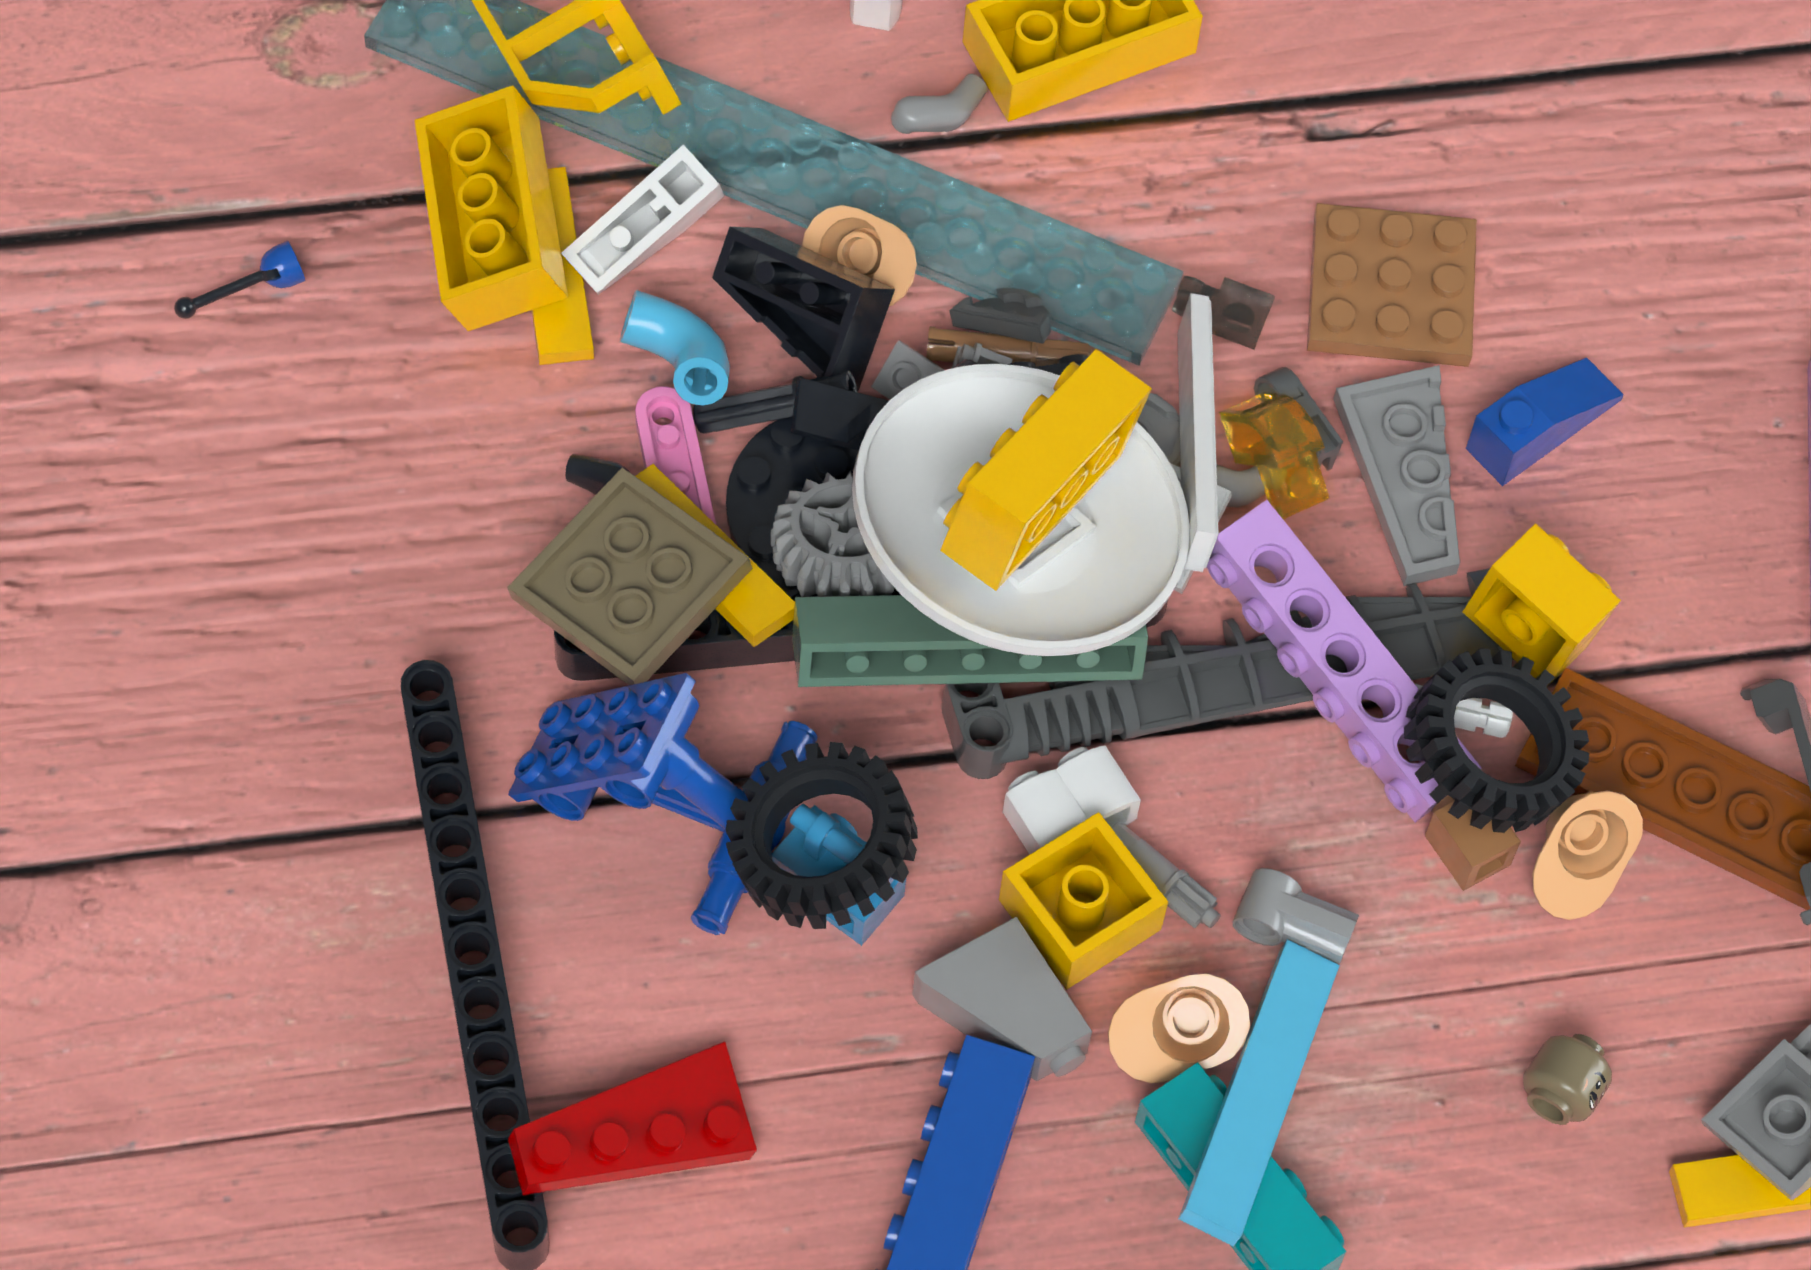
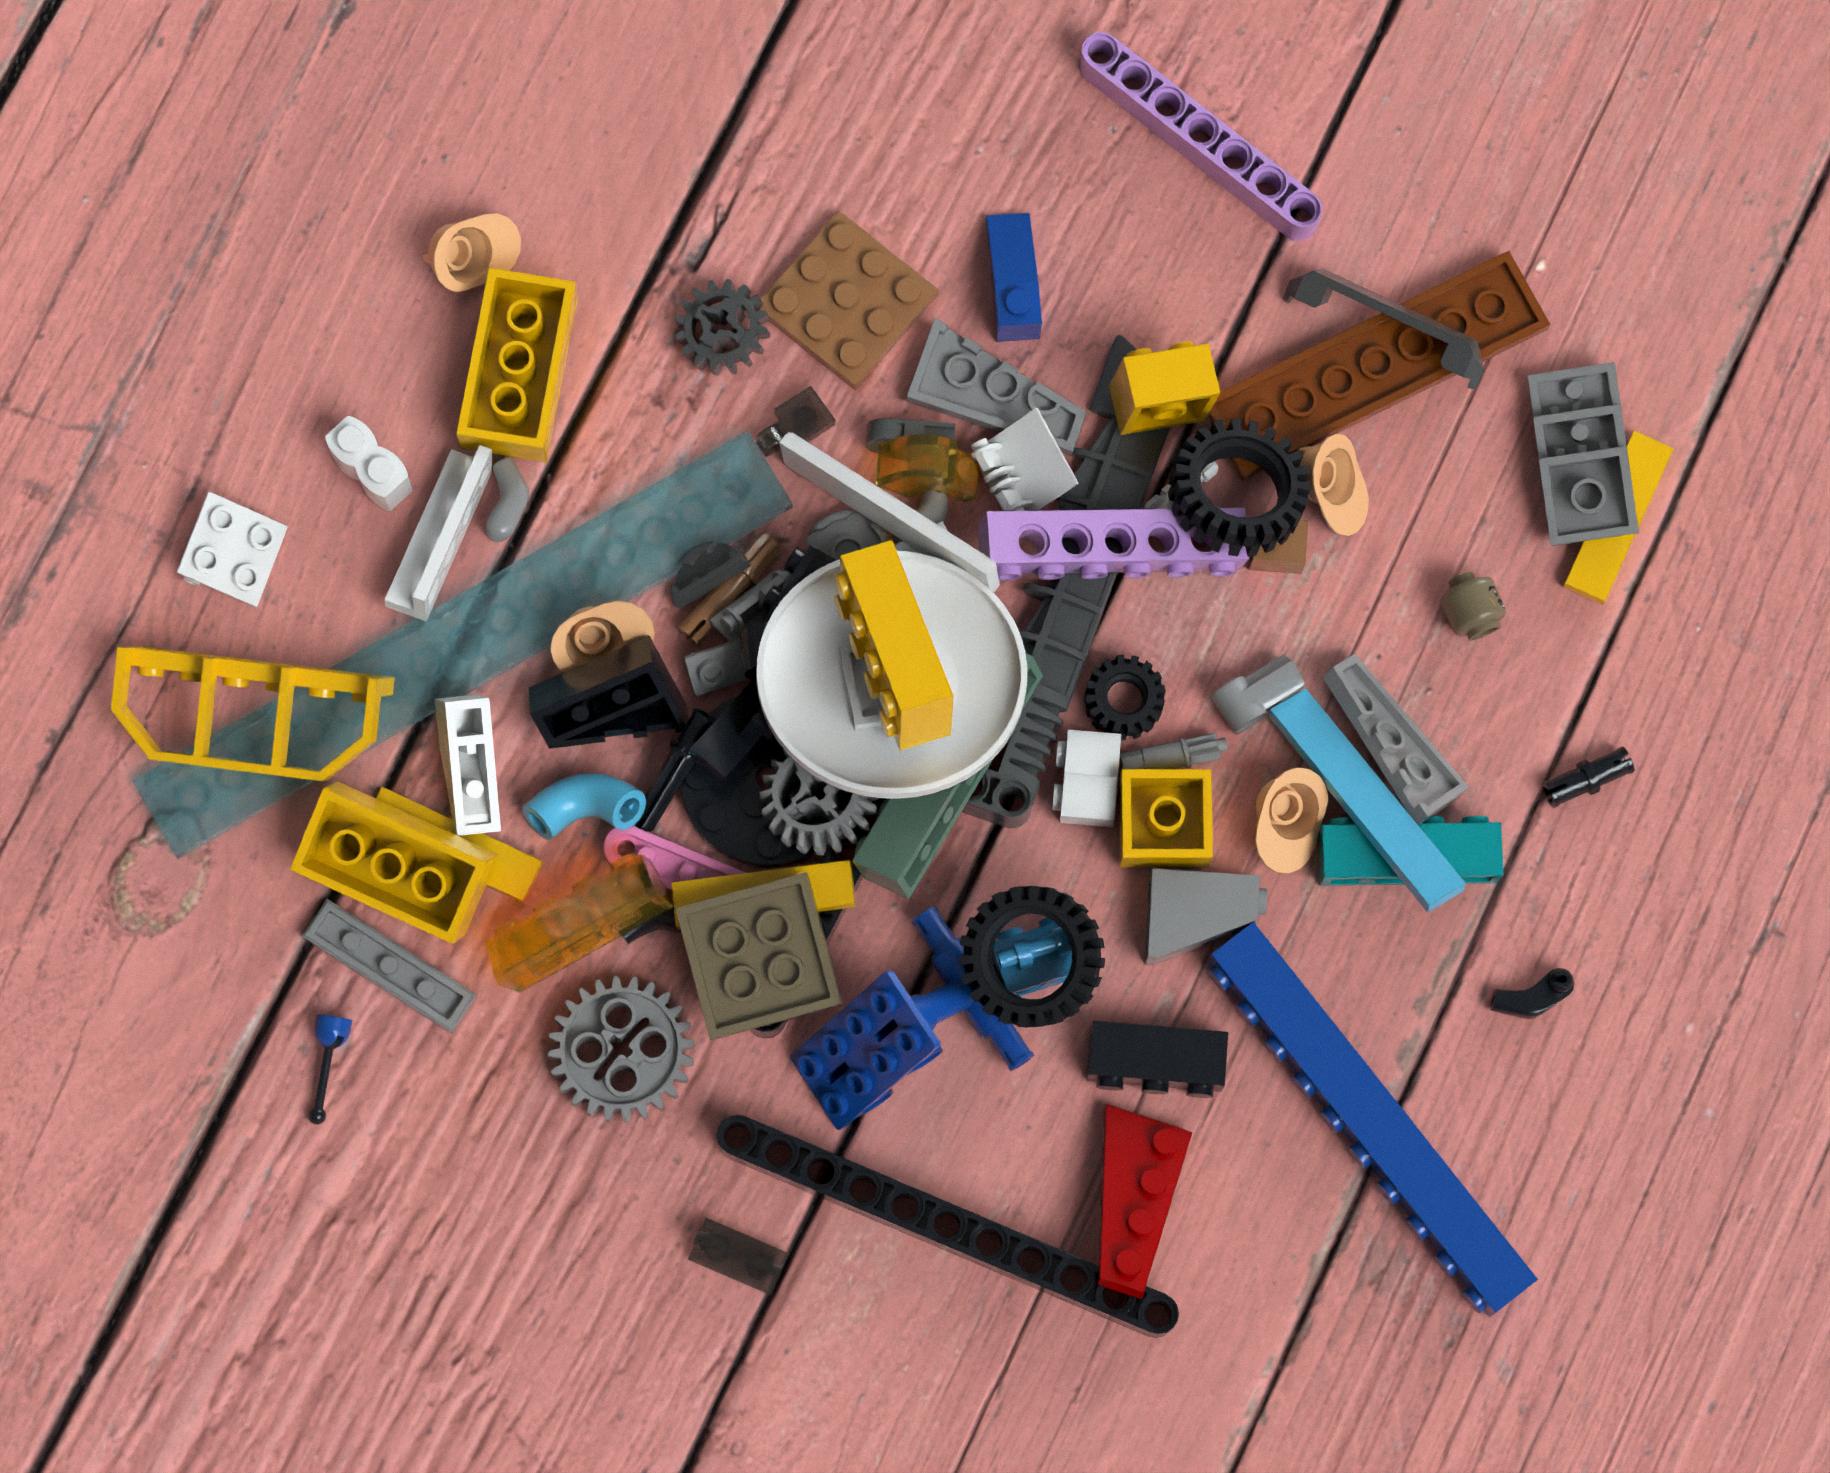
camera: 55 degrees left, 15 degrees up
(300, 774) = (738, 1256): none -> clear smoke hinge
(386, 284) = (389, 966): none -> light grey tile
(438, 575) = (653, 1075): none -> light grey gear
(543, 406) = (578, 923): none -> clear yellow slope
(813, 1060) = (1157, 1058): none -> black brick
(861, 66) = (439, 533): none -> white fence
(1193, 759) = (1124, 671): none -> black tyre
(1243, 189) = (716, 342): none -> dark grey gear
(1347, 1098) = (1401, 750): none -> light grey wing
(1354, 532) = (1024, 465): none -> white hinge

